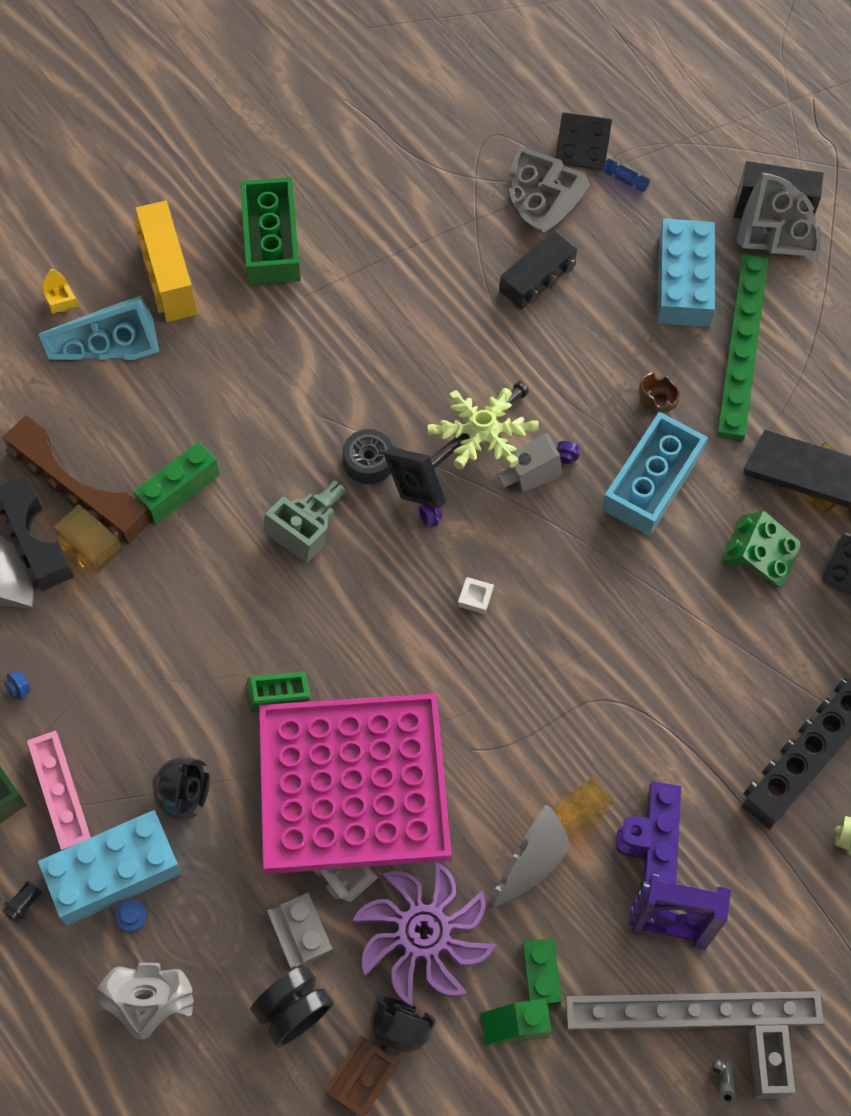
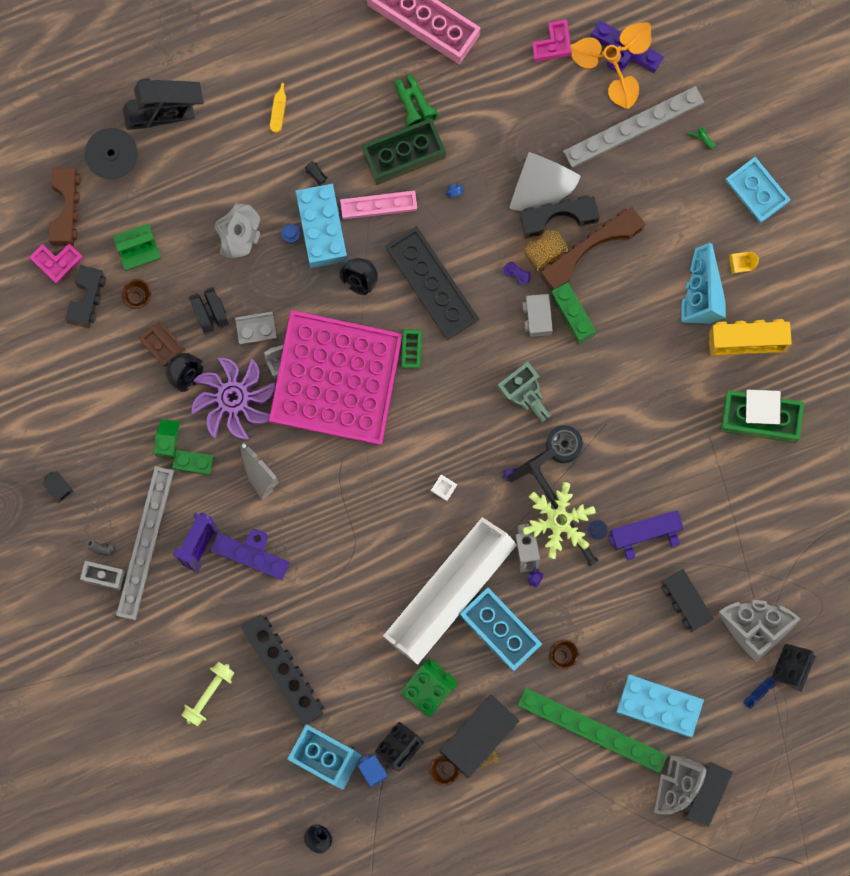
camera: 105 degrees right, 15 degrees up
(126, 579) = (522, 276): none -> dark purple piece
(169, 685) = (432, 283): none -> black plate
(189, 527) = (538, 315): none -> light grey brick
(258, 223) = (763, 407): none -> white sticker
(460, 333) = (646, 530): none -> dark purple brick
(477, 391) = (597, 529): none -> clear blue plate
(582, 807) = (282, 509): clear yellow brick -> none
(624, 545) = (450, 590): none -> white piece

